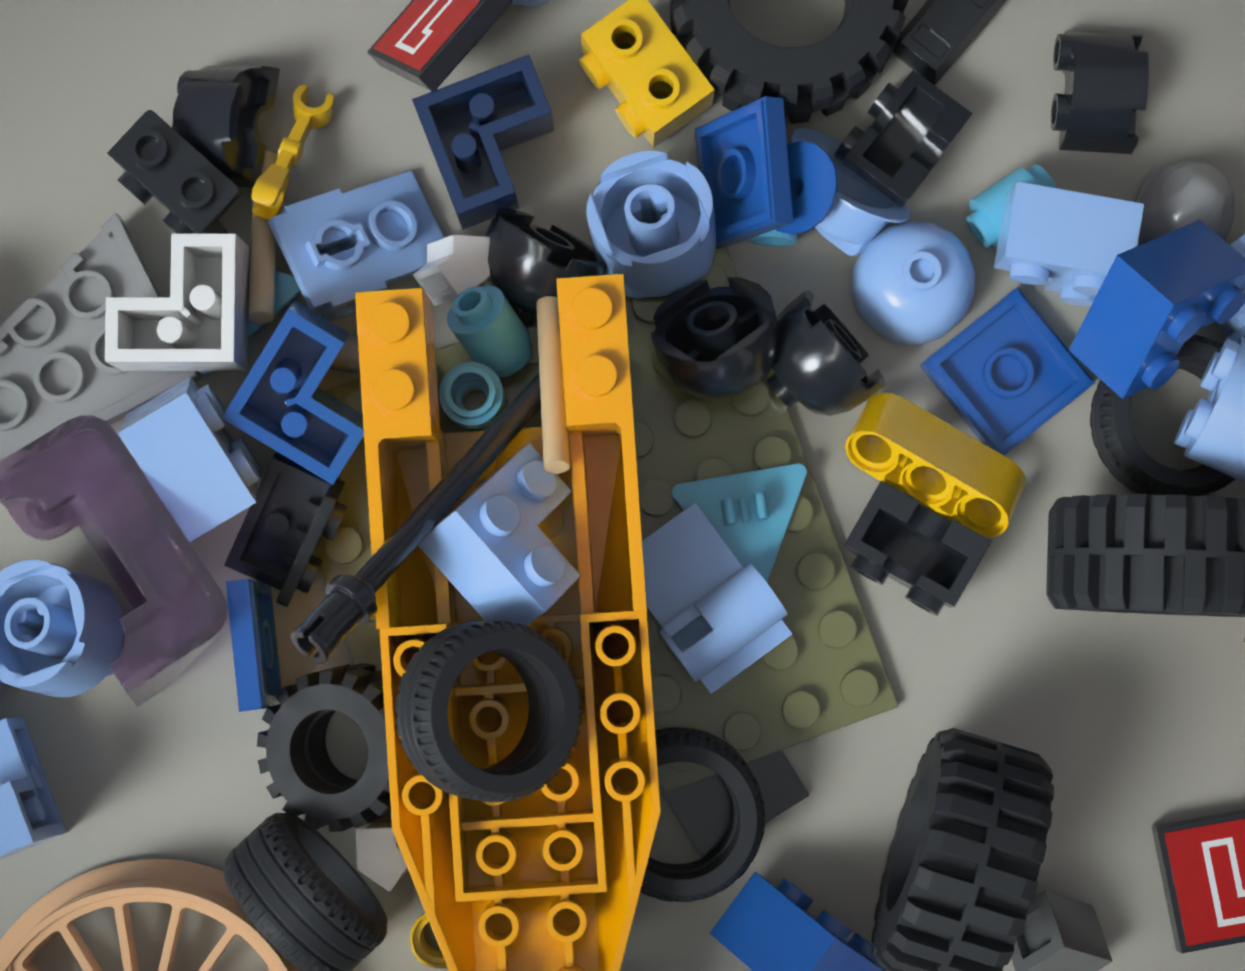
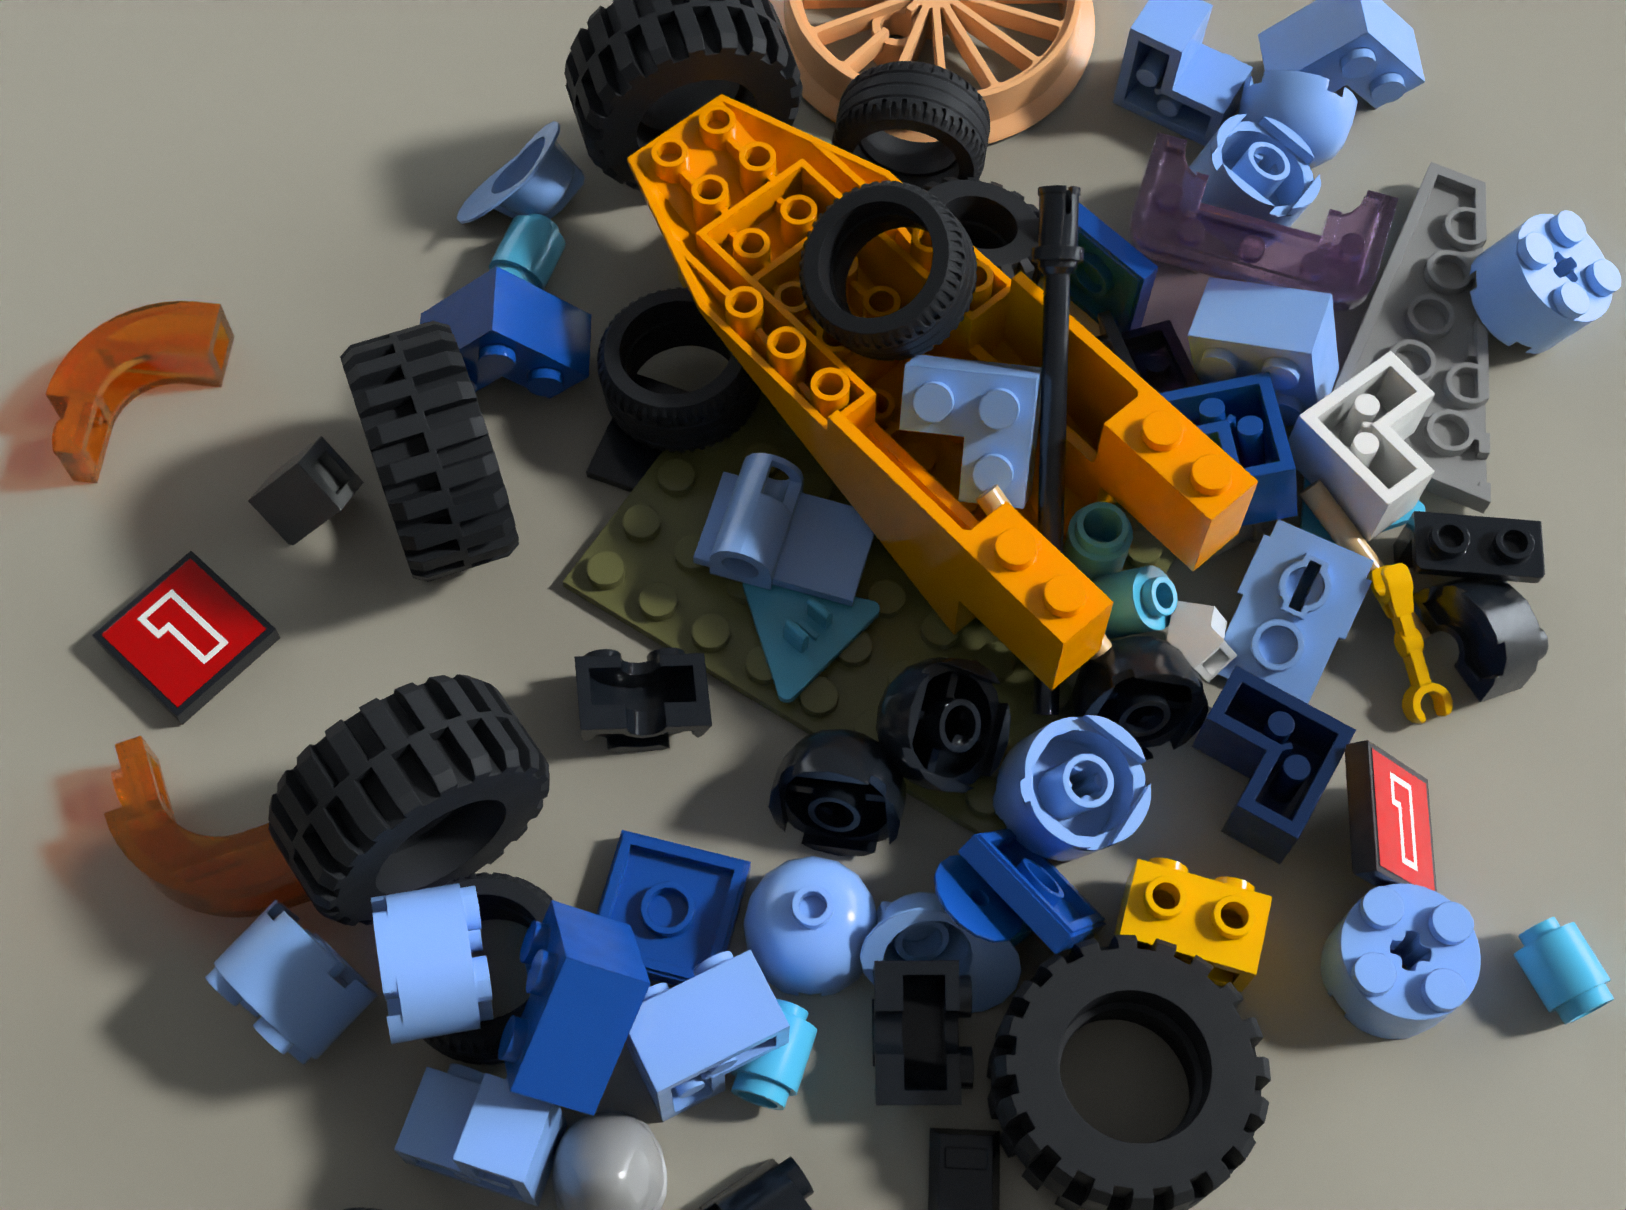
camera: 140 degrees right, 20 degrees down
(936, 464) = (674, 775): yellow beam -> none

